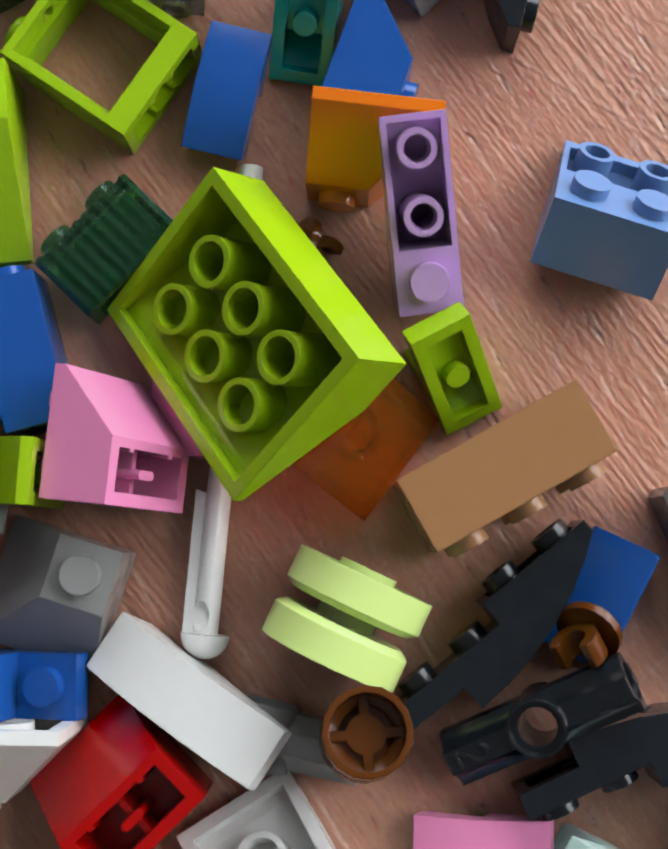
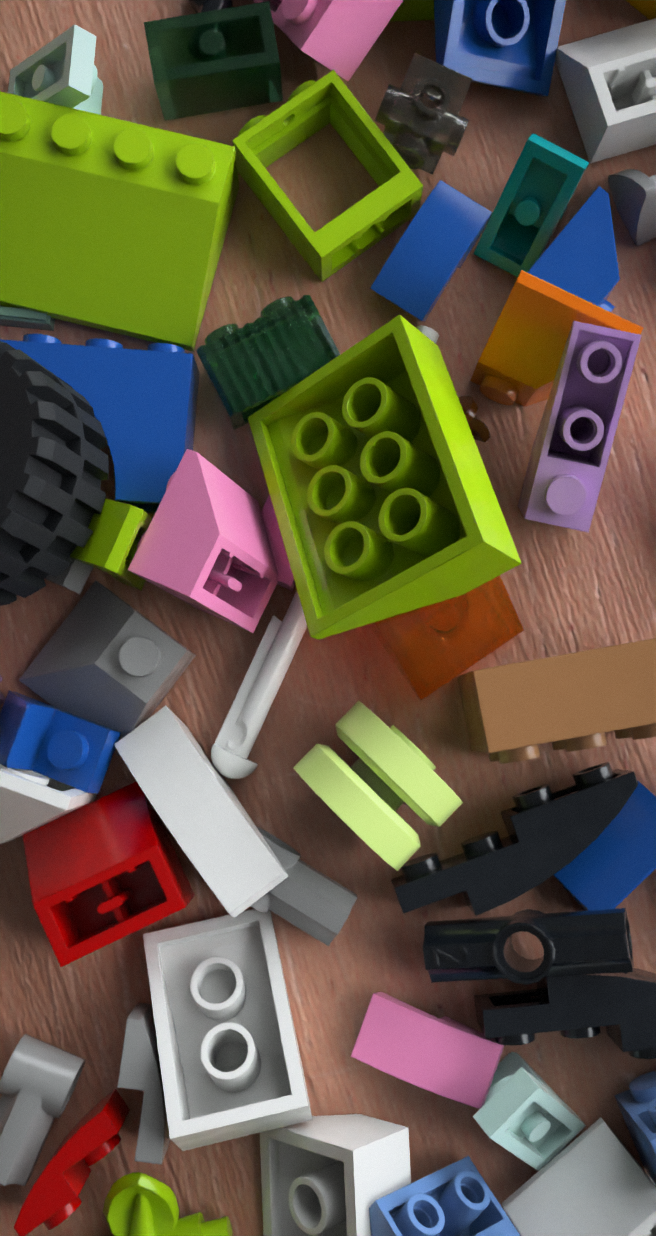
camera: 10 degrees right, 0 degrees up
(366, 734) = (359, 902): reddish brown wheel -> none
(451, 368) = (555, 584): lime slope -> none
(587, 632) = (599, 878): reddish brown plate -> none

